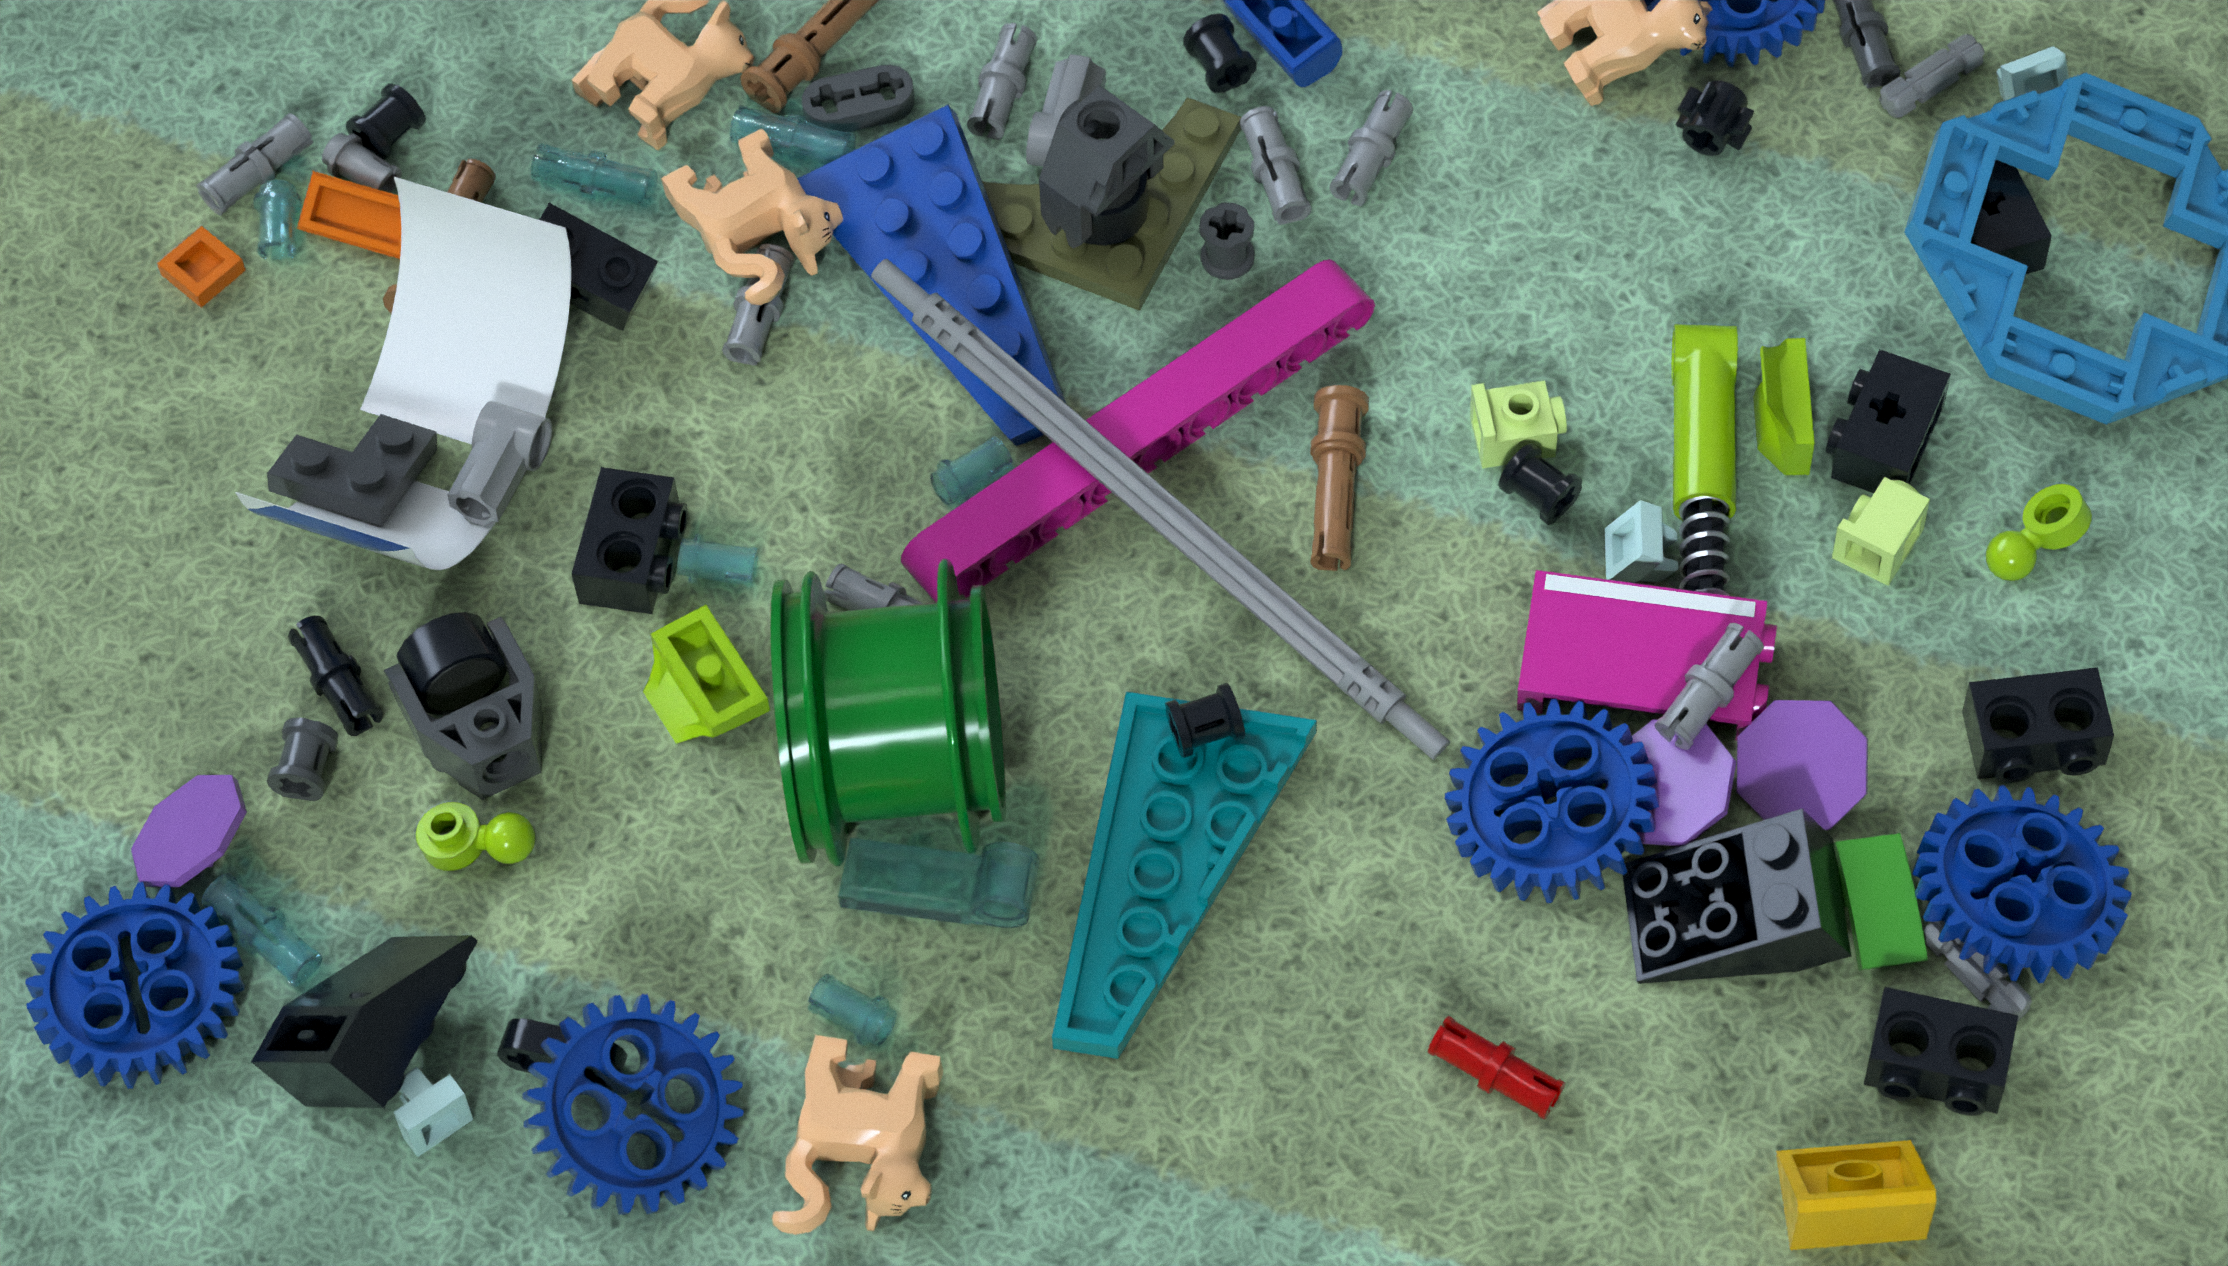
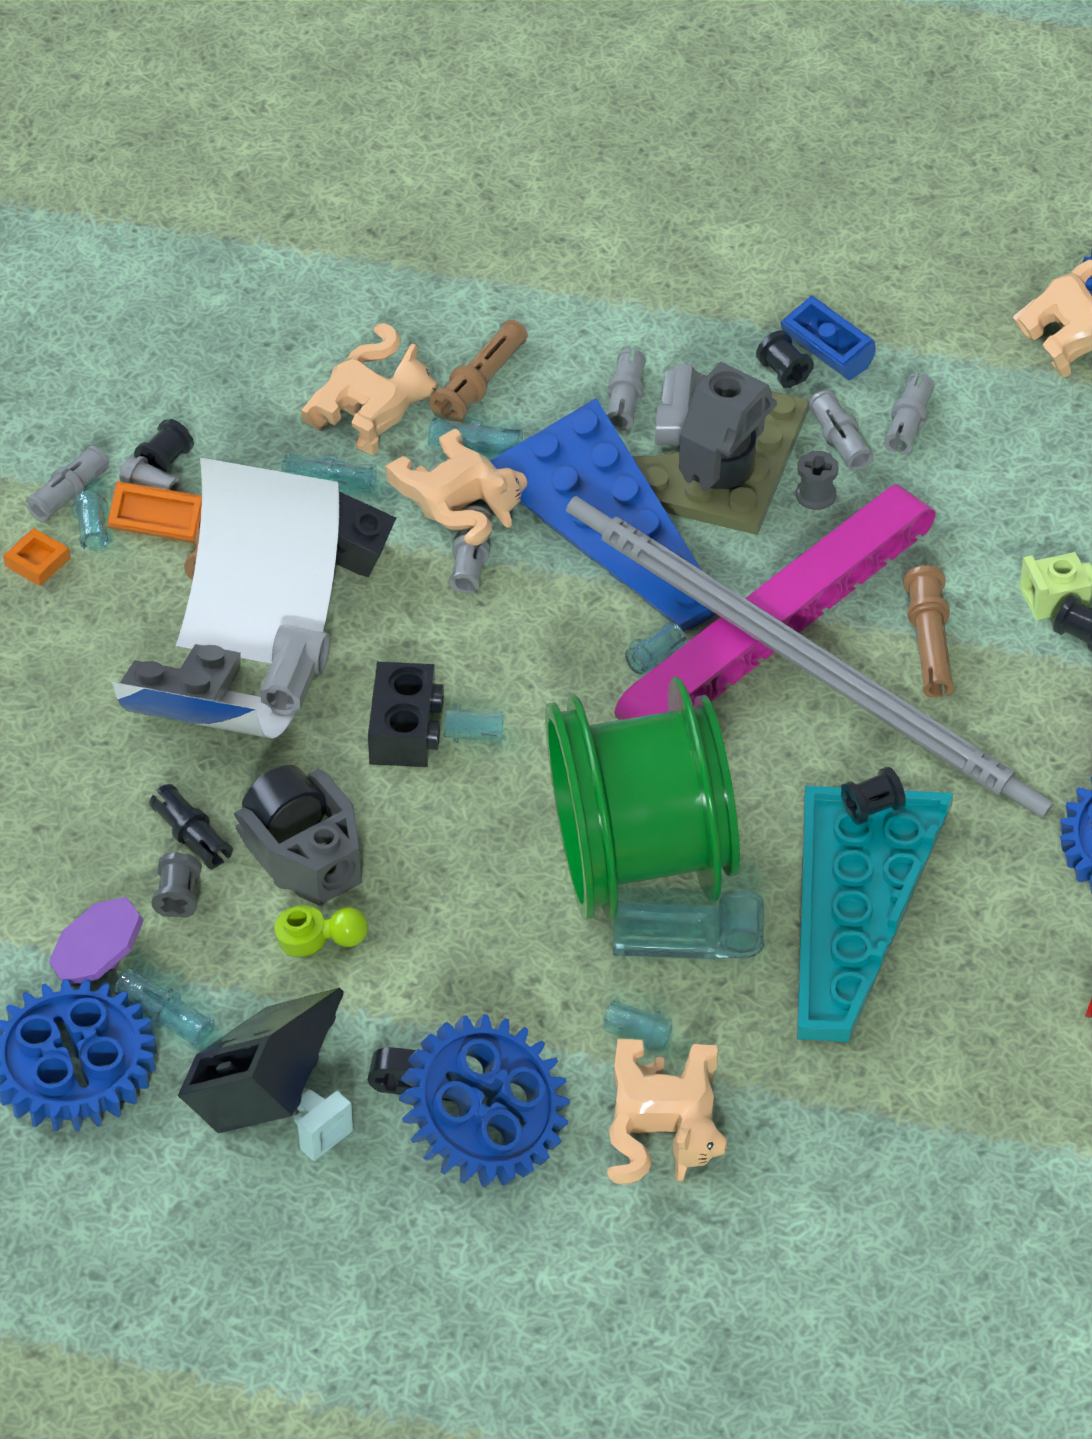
camera: 10 degrees left, 10 degrees down
(701, 679) = (477, 804): lime slope -> none
(859, 98) = (520, 409): dark grey beam -> none

